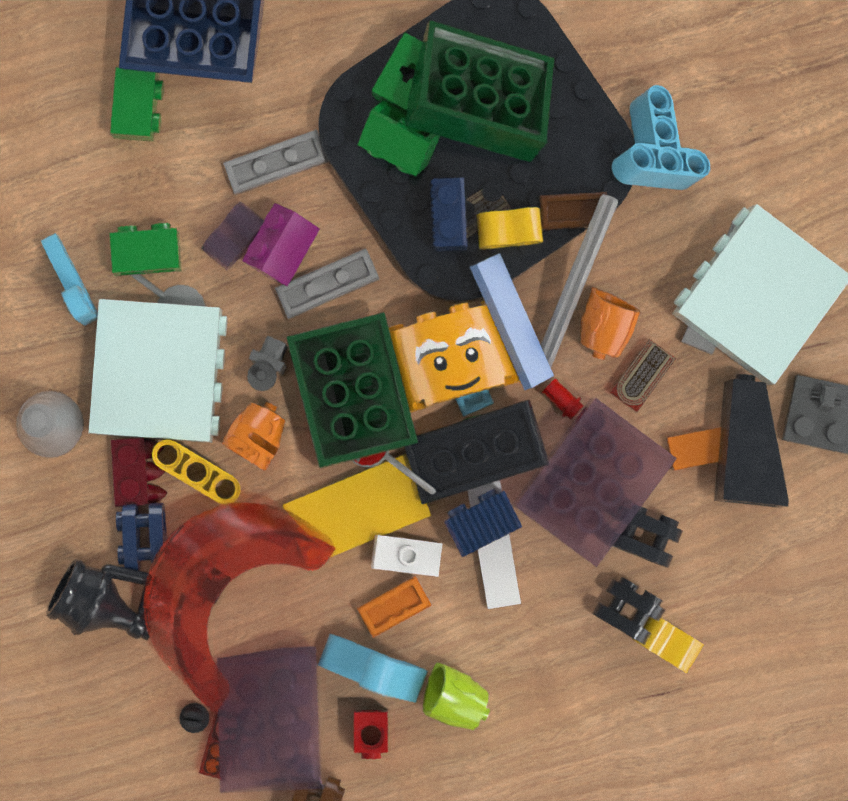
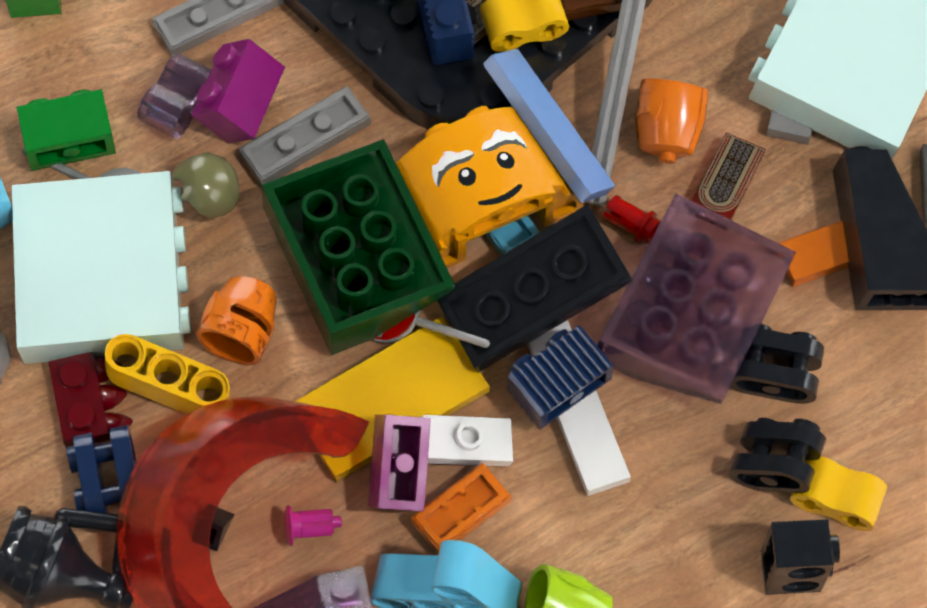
camera: 10 degrees left, 20 degrees down
(247, 319) = (208, 184): none -> olive hair
(267, 362) = (242, 225): dark grey hips -> none
(283, 598) = (309, 523): none -> dark pink piece
(354, 571) = (399, 462): none -> magenta brick
(627, 692) = (798, 556): none -> black brick

